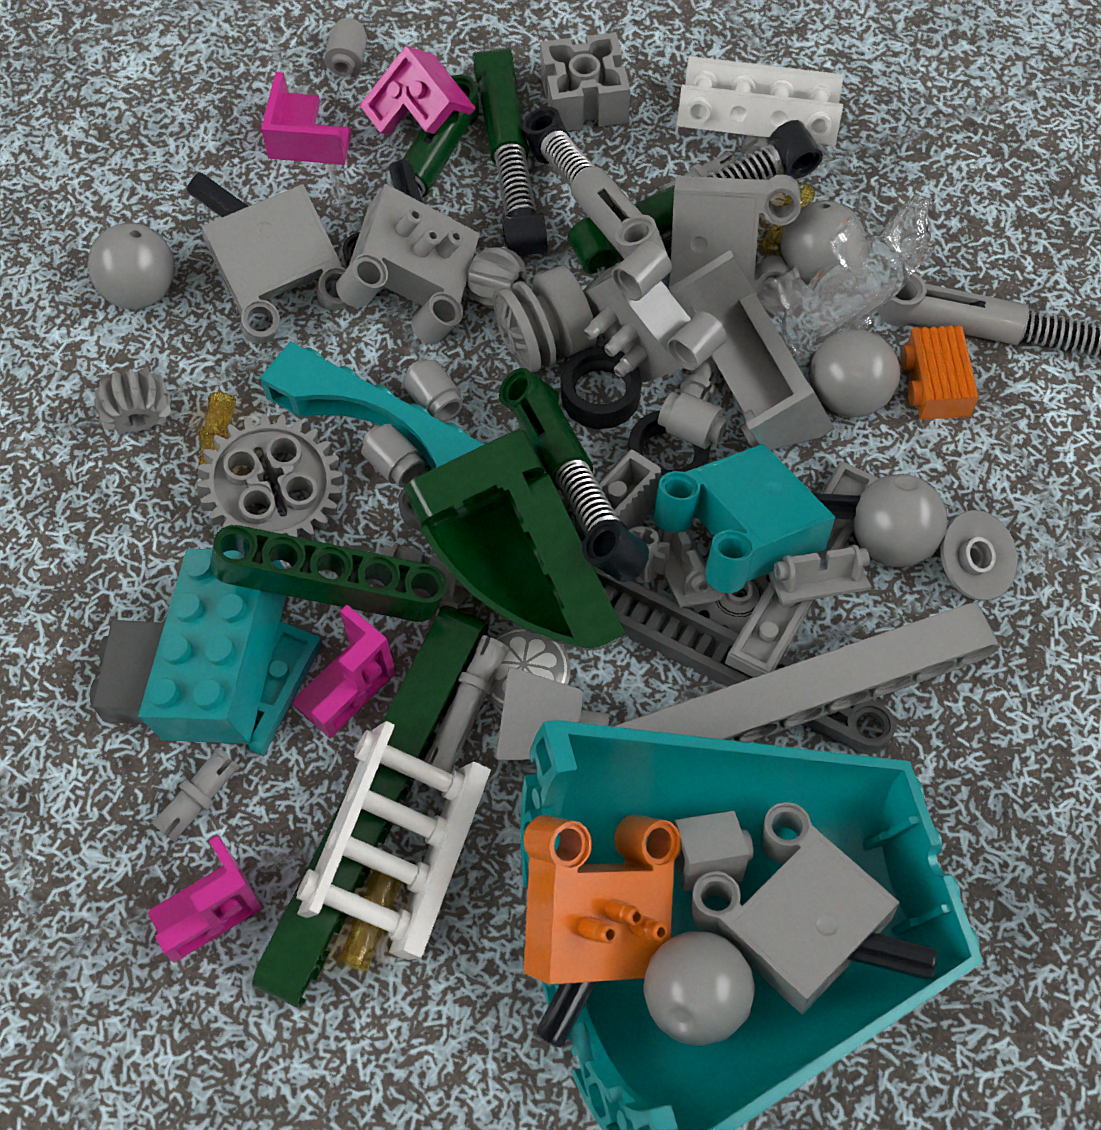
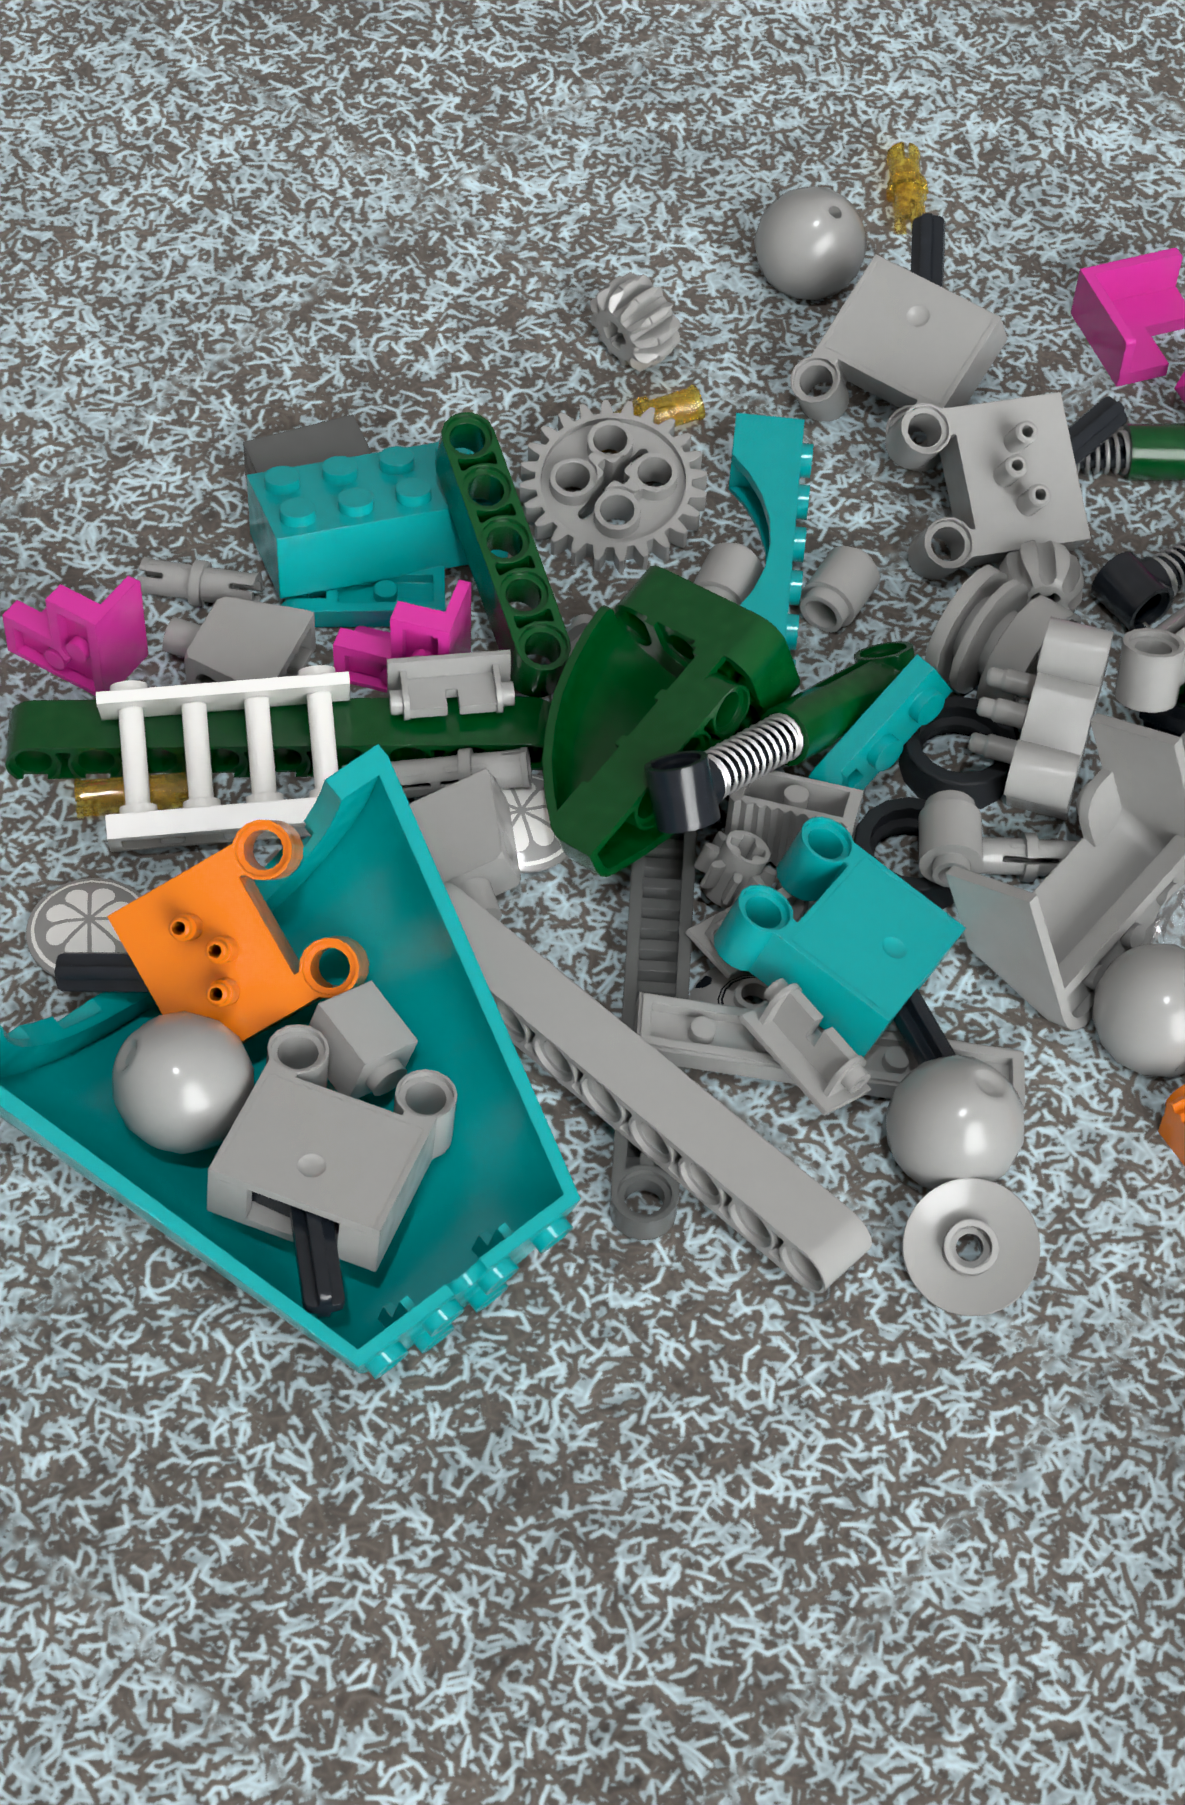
camera: 60 degrees right, 10 degrees down
(106, 192) = (906, 185): none -> clear yellow pin
(285, 791) = (243, 641): none -> light grey torso
(403, 677) = (422, 683): none -> light grey hinge
(479, 1003) = (76, 920): none -> dish
(588, 424) = (885, 727): none -> teal plate

